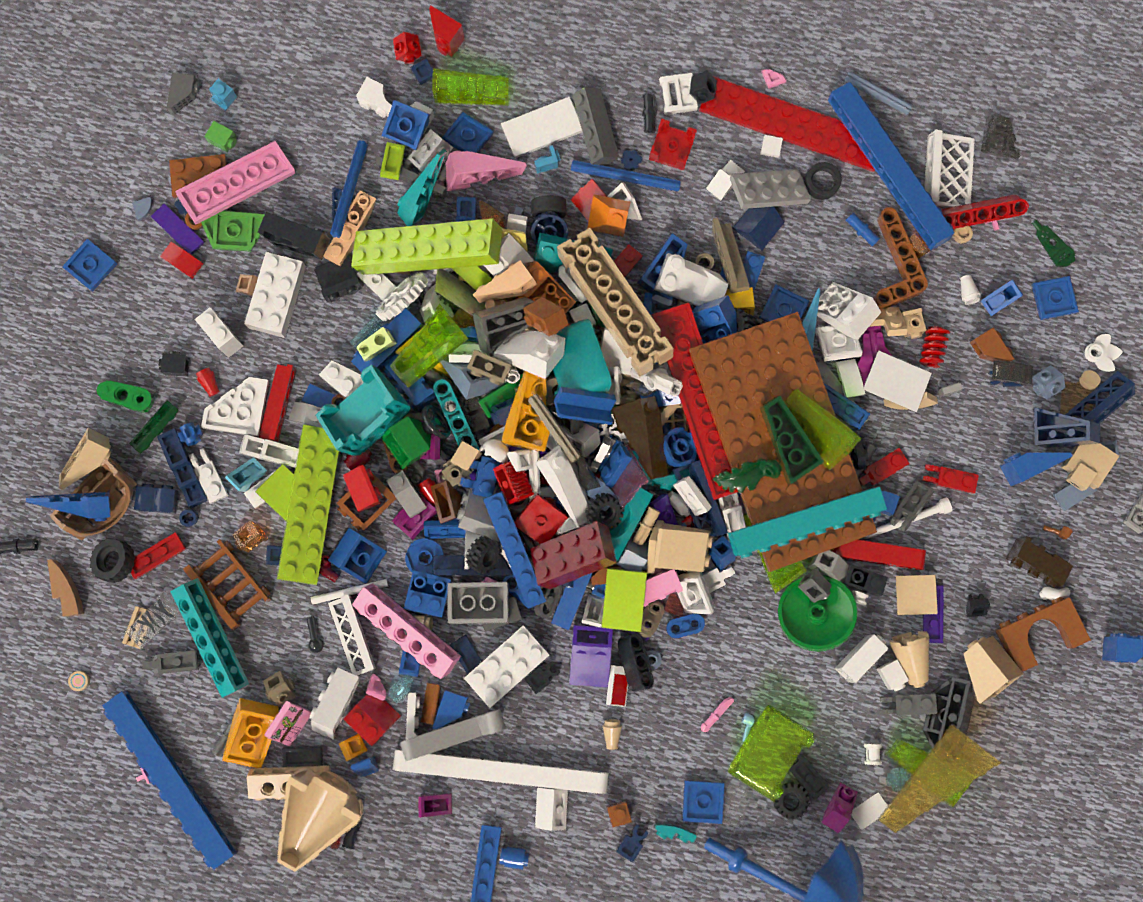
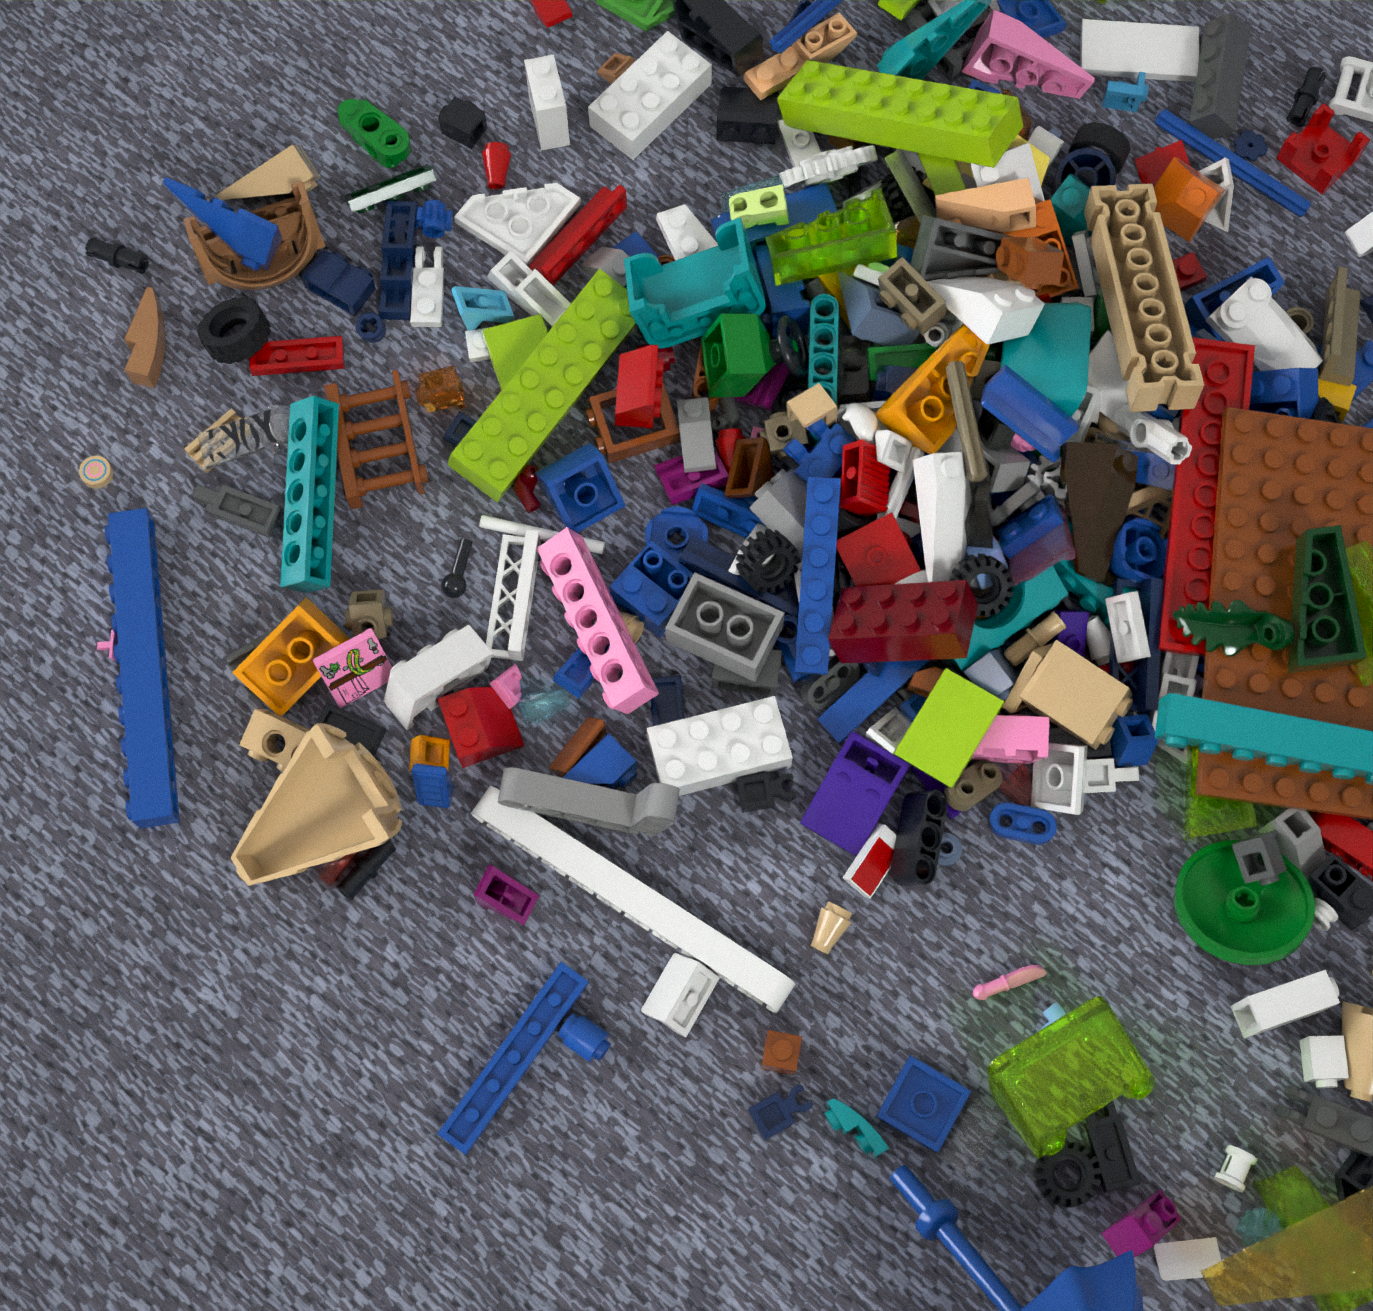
camera: 30 degrees right, 10 degrees down
(412, 721) = (550, 733): white hinge -> none

